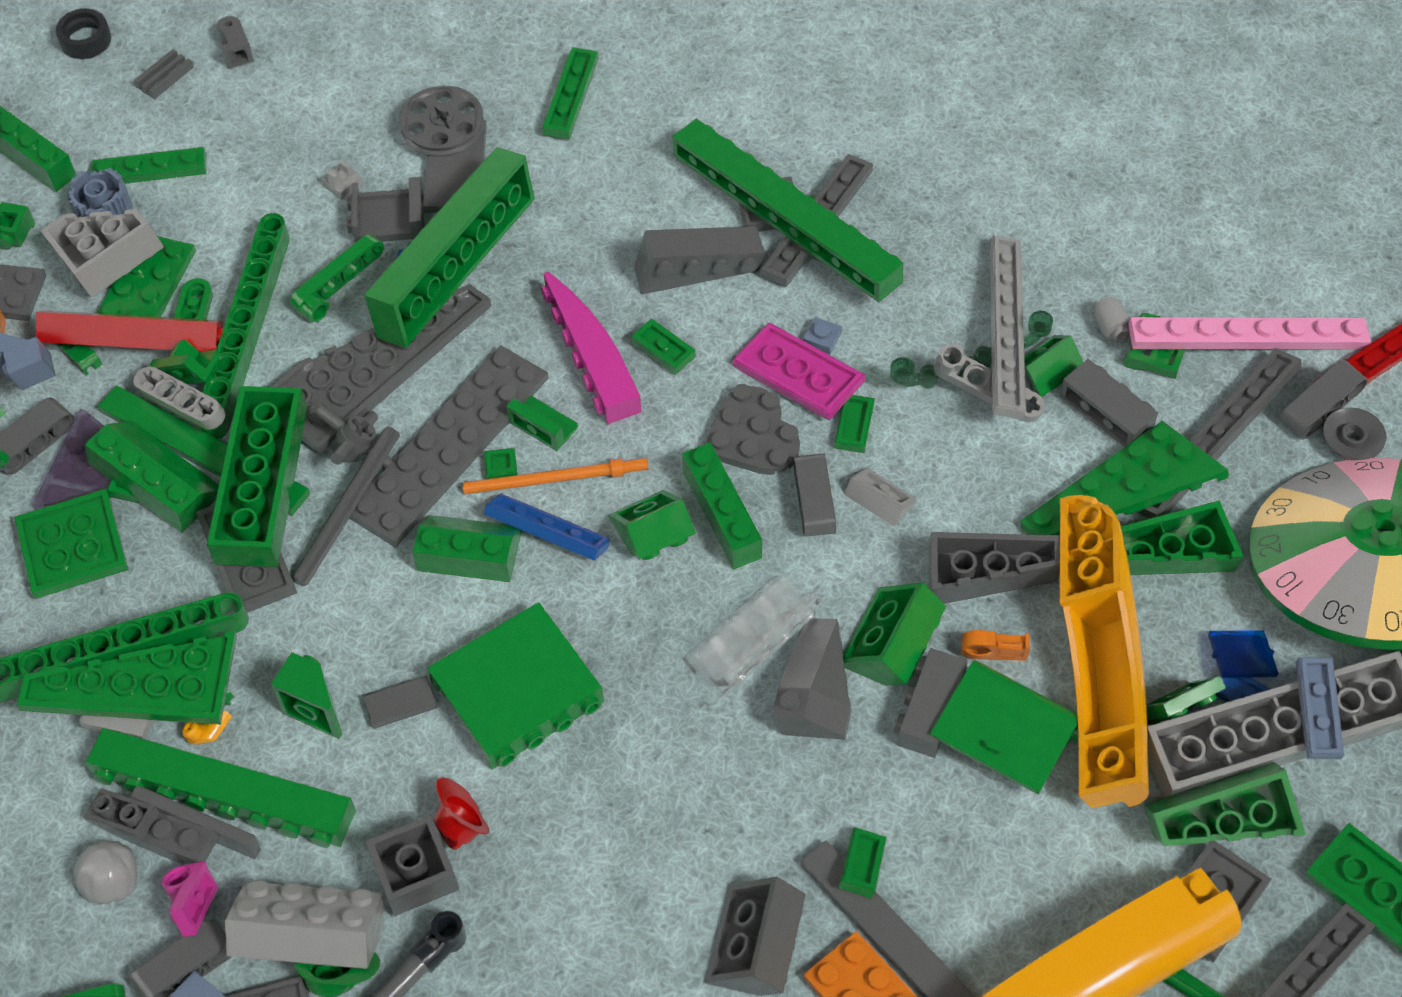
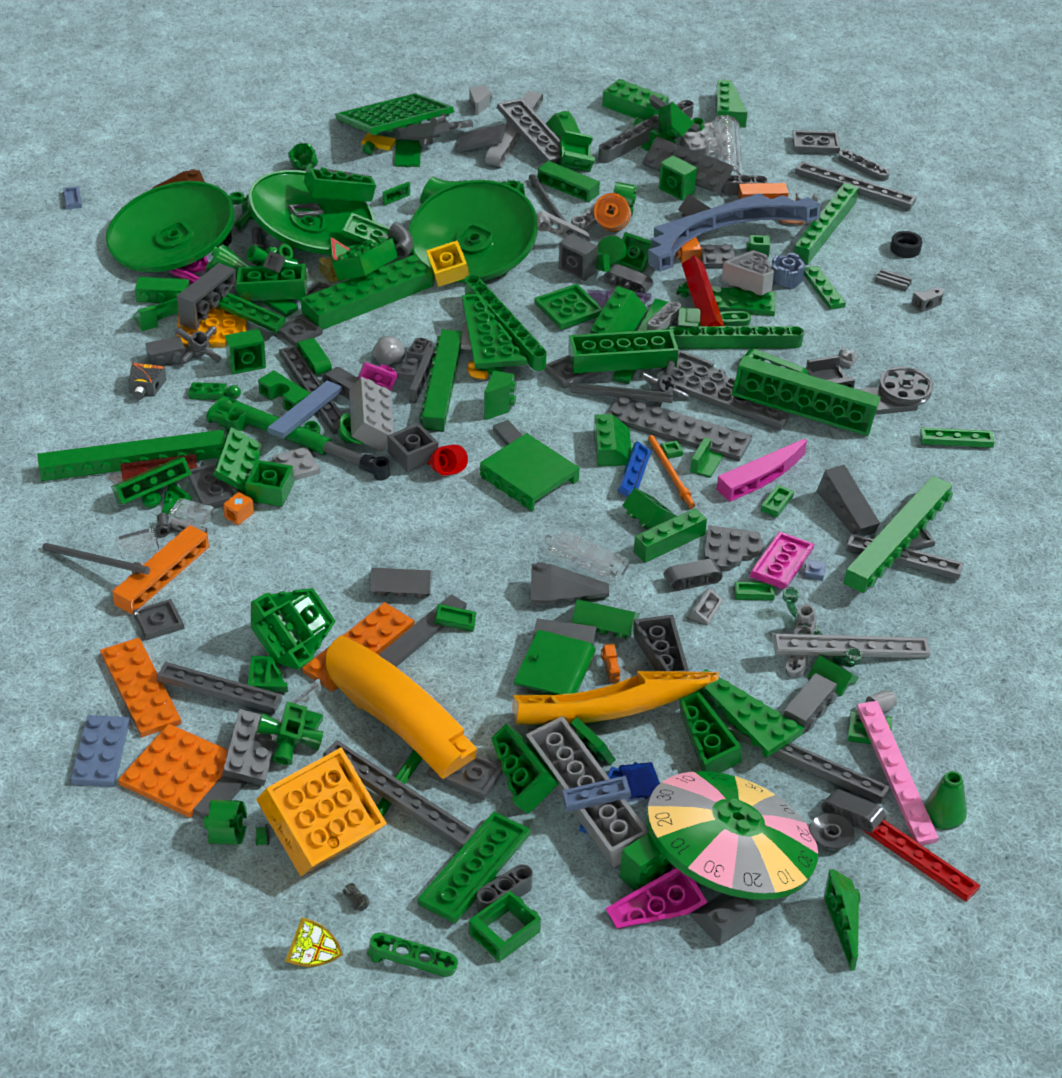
camera: 75 degrees right, 15 degrees down
(1316, 287) = (947, 802): none -> green cone

